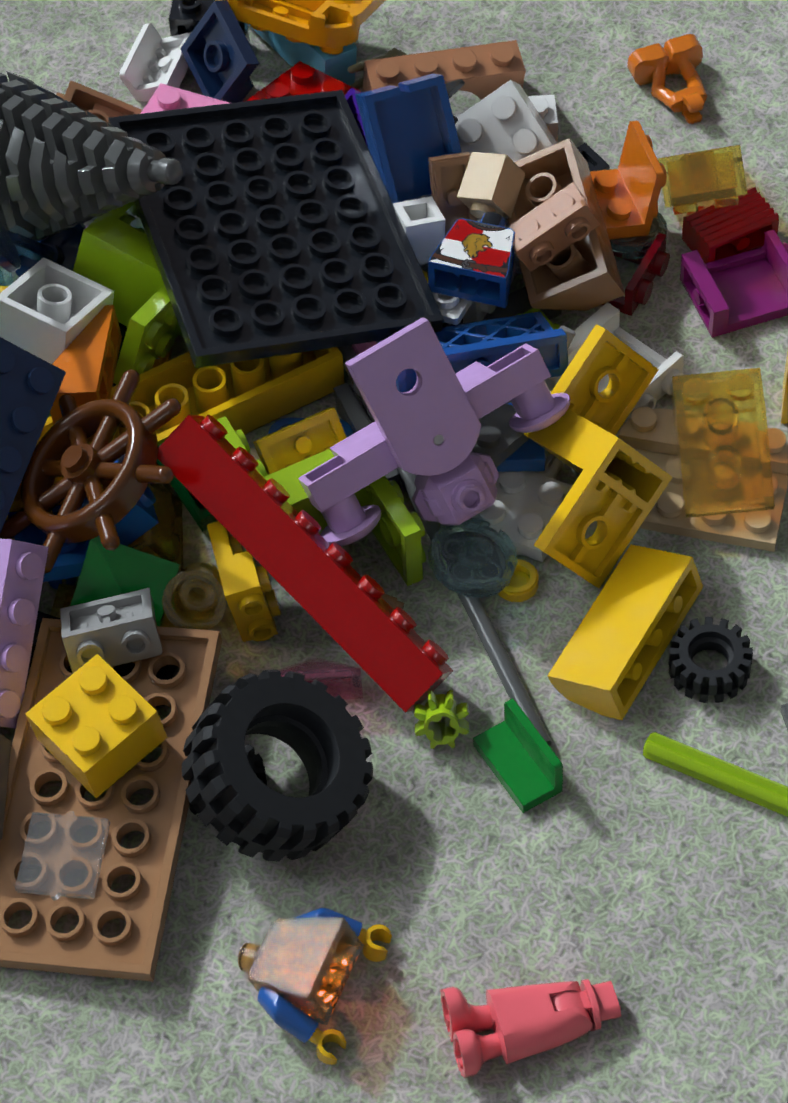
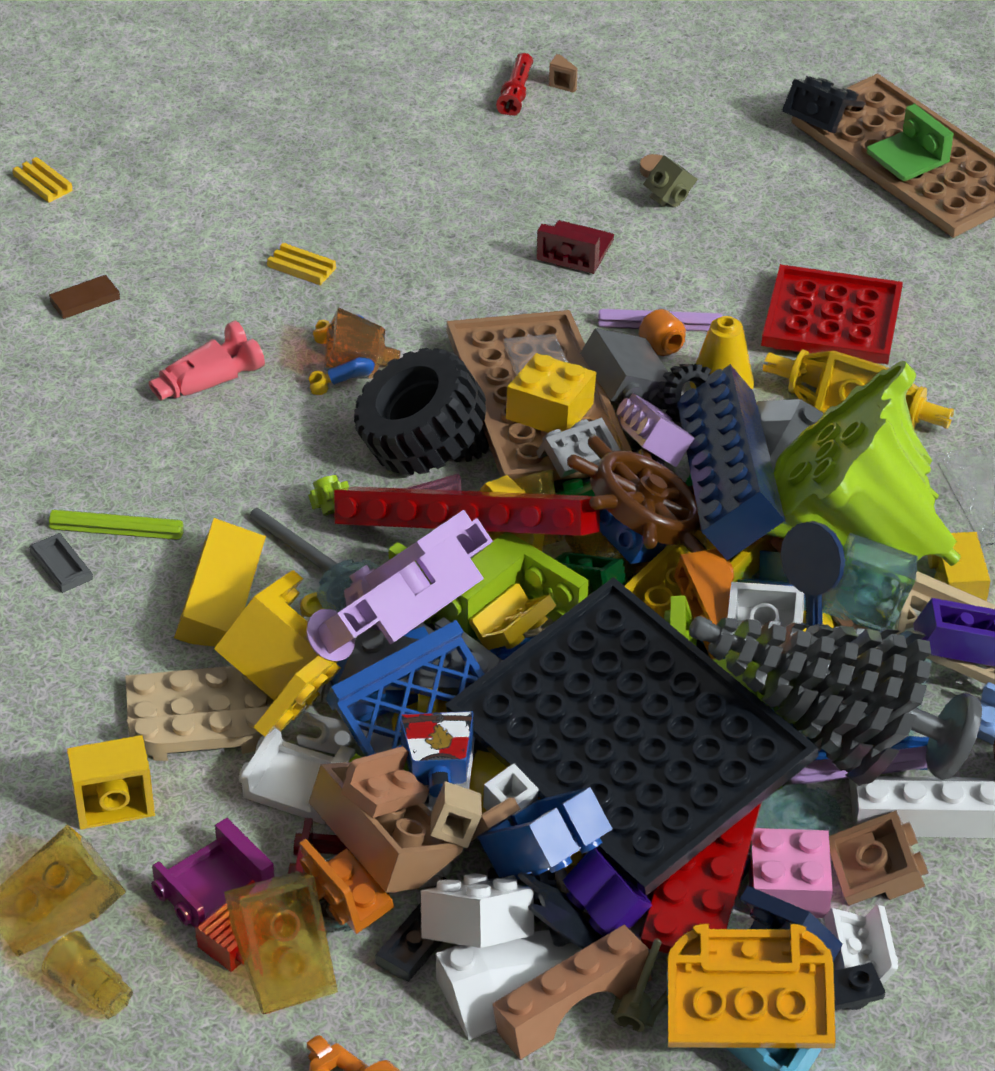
camera: 155 degrees right, 10 degrees down
(521, 759) = (265, 494): green panel -> none
(704, 681) = (152, 570): black tyre -> none
(722, 442) = (188, 702): clear yellow slope -> none

